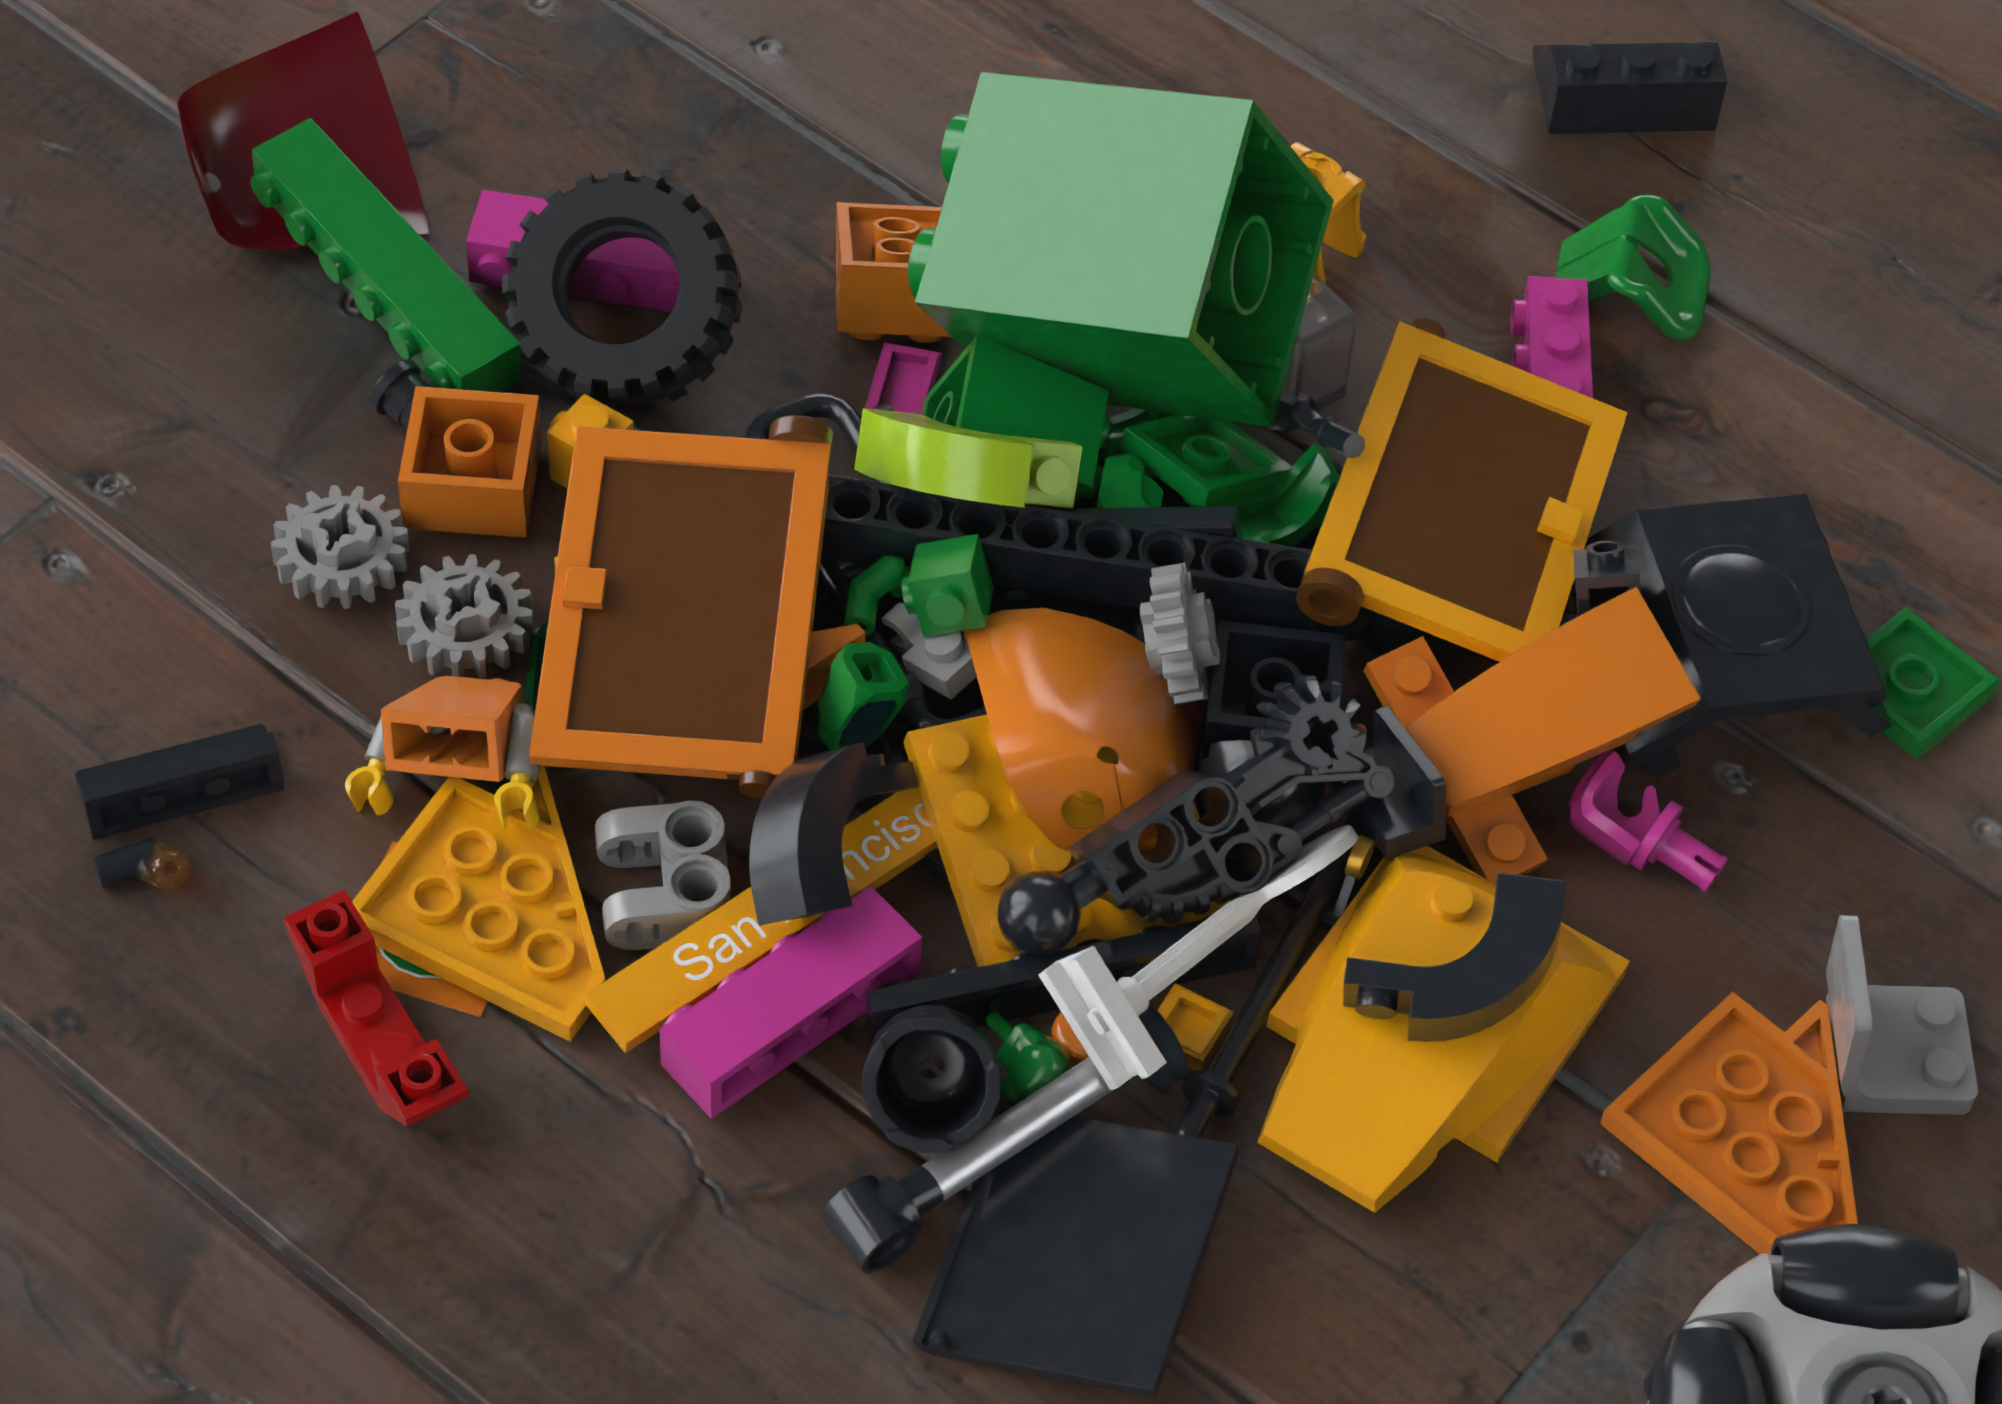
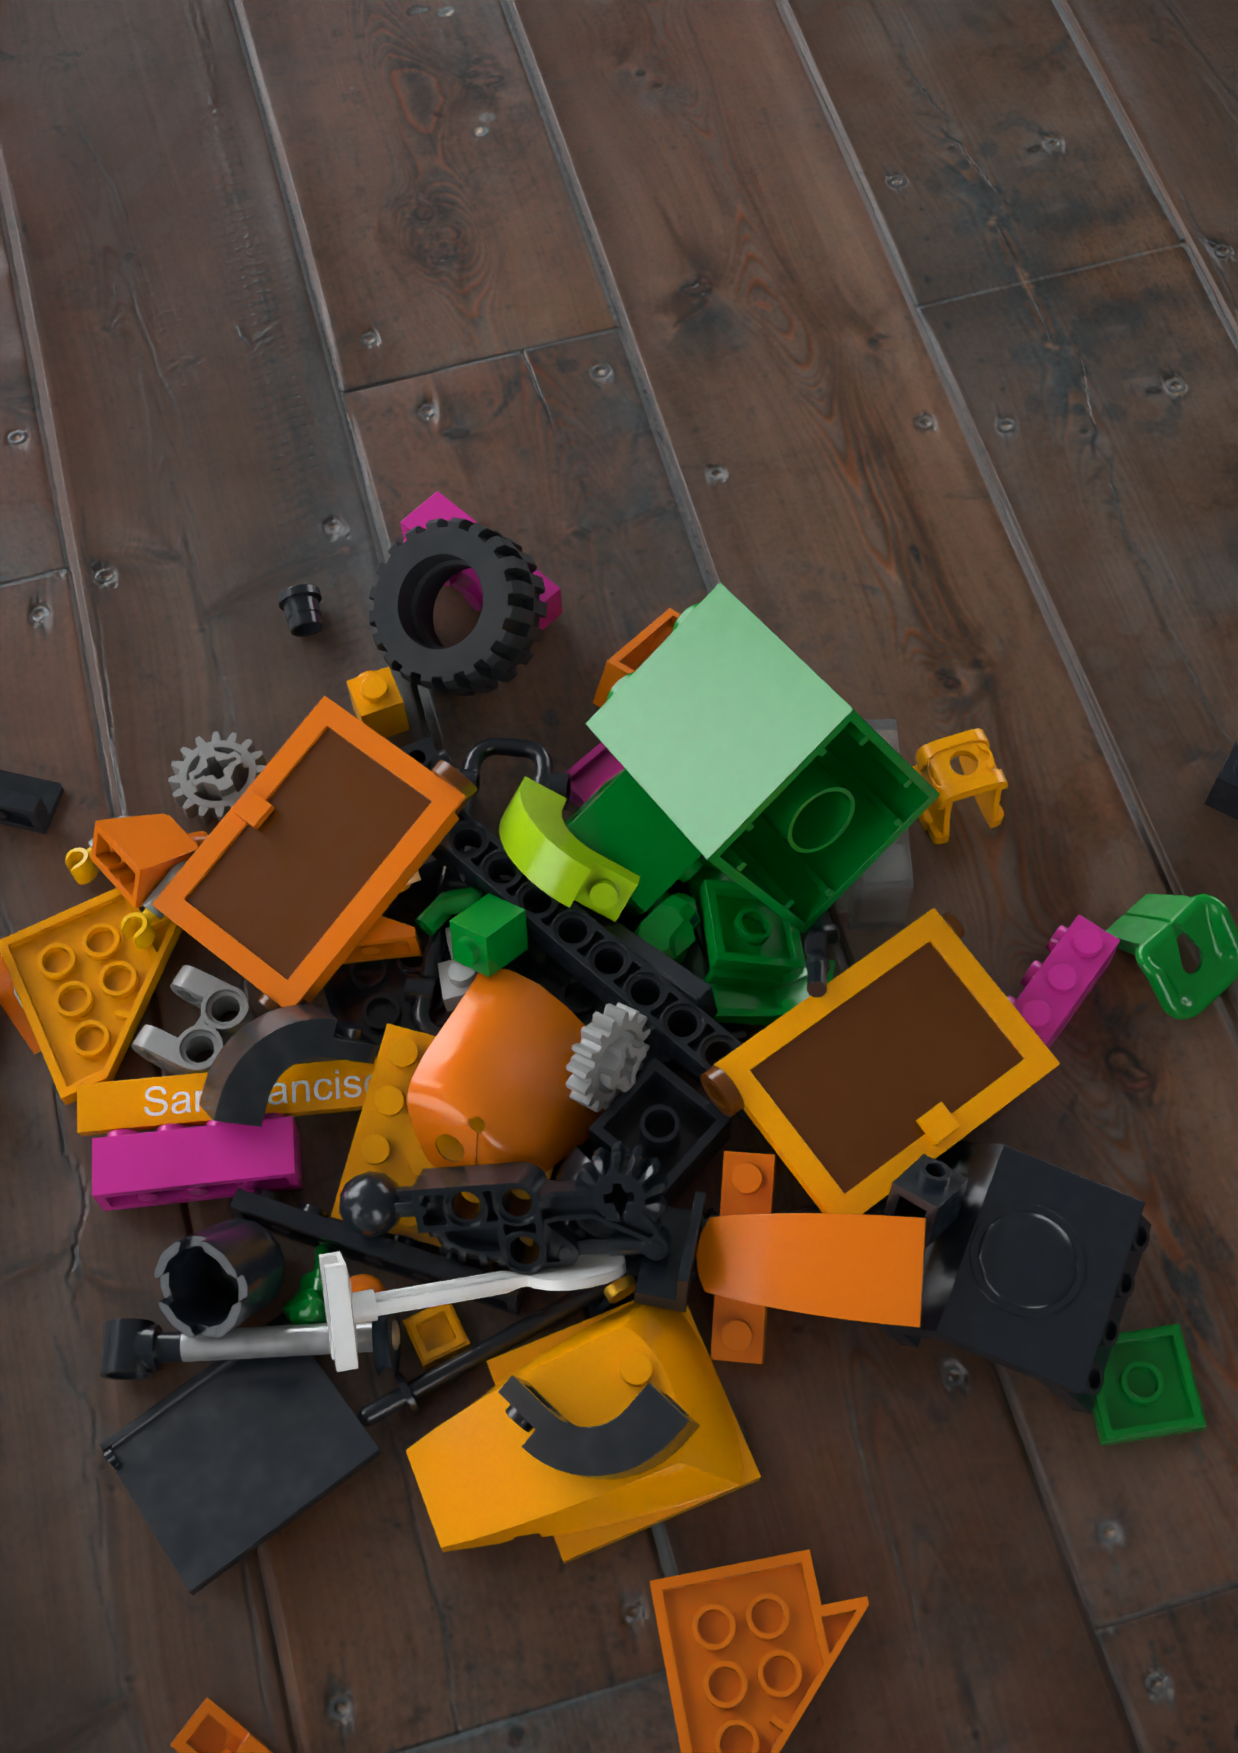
camera: 40 degrees right, 10 degrees up
(318, 77) = (369, 407): dark red piece -> none
(345, 546) = (186, 690): light grey gear -> none
(383, 262) = (351, 508): green brick -> none
(470, 462) = (293, 671): orange brick -> none
(860, 695) = (383, 977): green rock -> none
(1641, 837) = (838, 1387): dark pink piece -> none
(1896, 1043) = (901, 1662): light grey piece -> none

